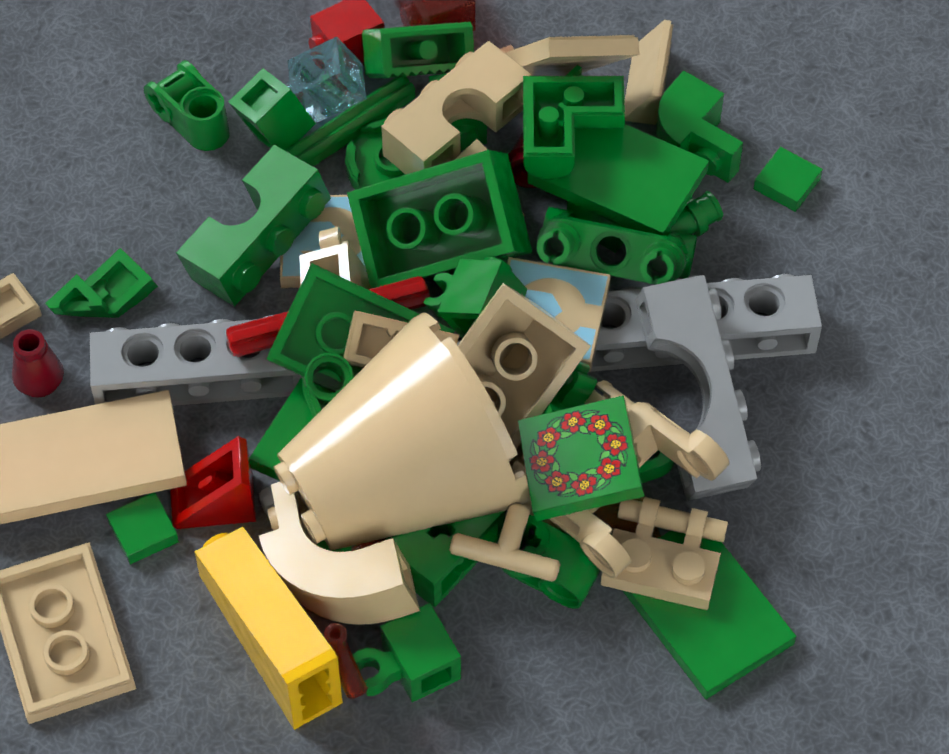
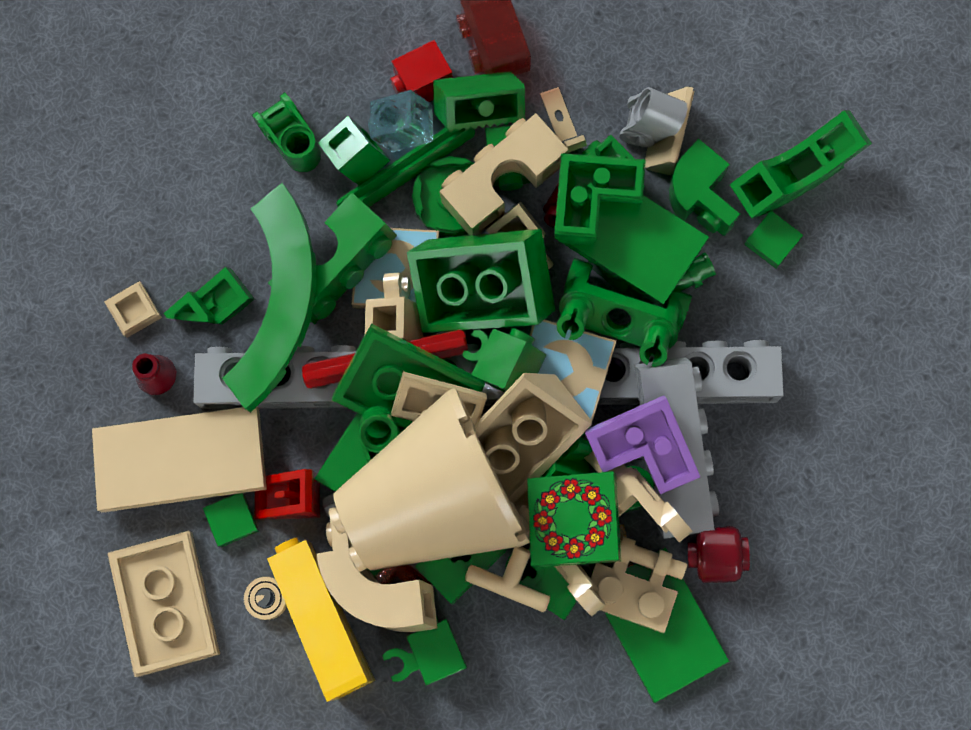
camera: 10 degrees right, 20 degrees up
(193, 614) = (264, 599): none -> tan tile
(204, 269) = (289, 303): none -> green tile
(350, 675) = (372, 658): clear red piece -> none
(561, 54) = (600, 128): tan tile -> none
(651, 45) = (652, 117): none -> light grey piece
(664, 354) = (649, 433): none -> medium lavender plate
(767, 511) = (719, 555): none -> dark red head
(811, 99) = (801, 168): none -> green arch

